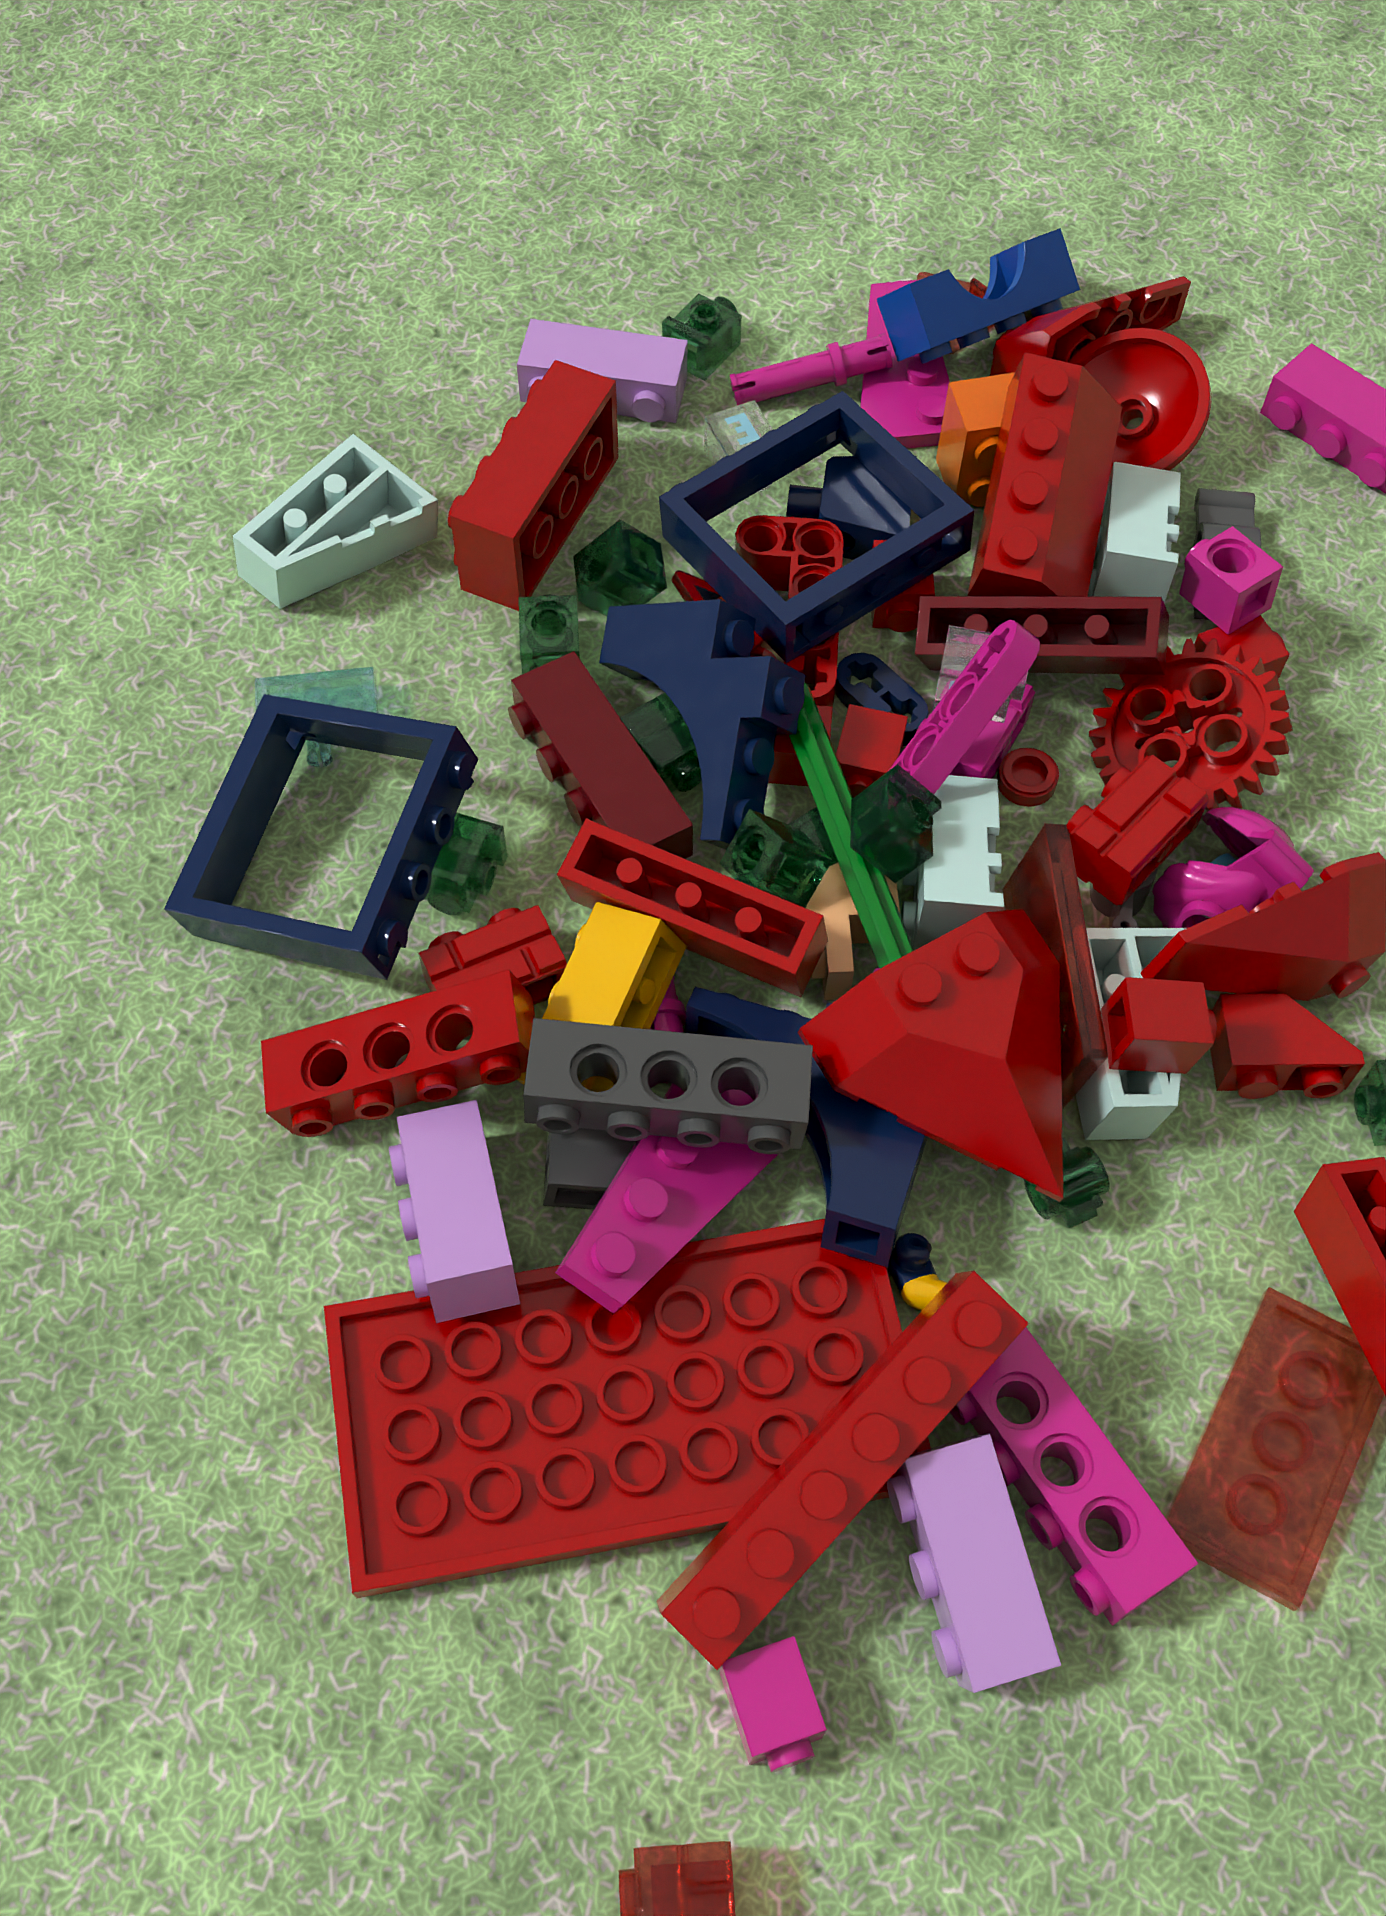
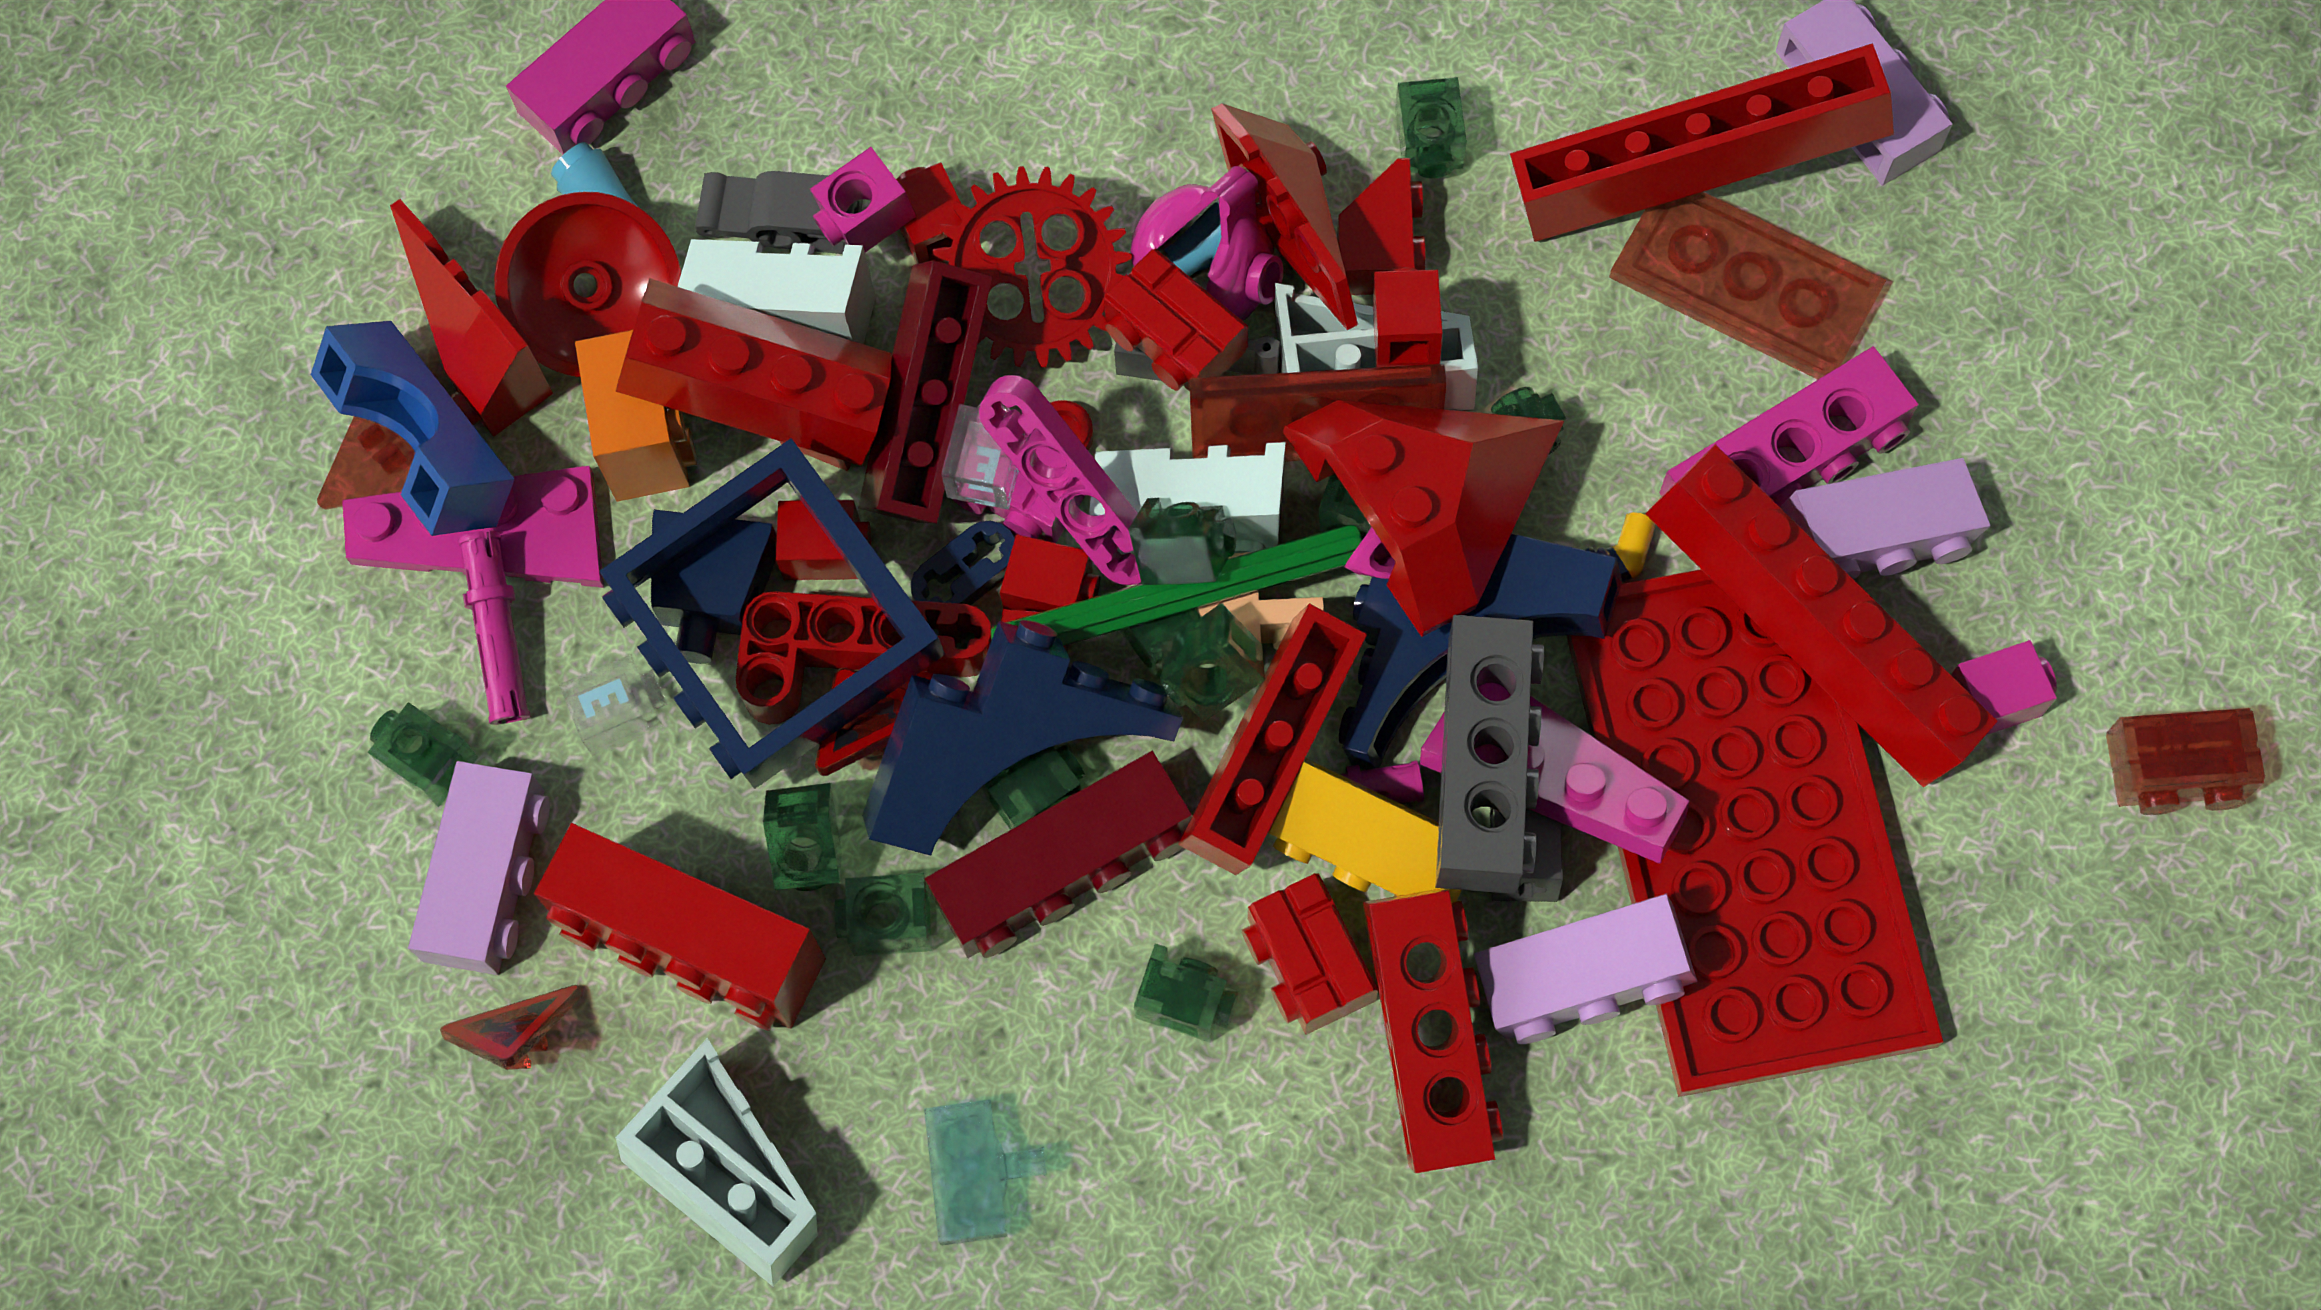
camera: 85 degrees left, 10 degrees up
(248, 799) = (1138, 1232): dark blue window -> none
(468, 392) = (512, 1030): none -> piece
(1233, 419) = (587, 171): none -> medium azure cone

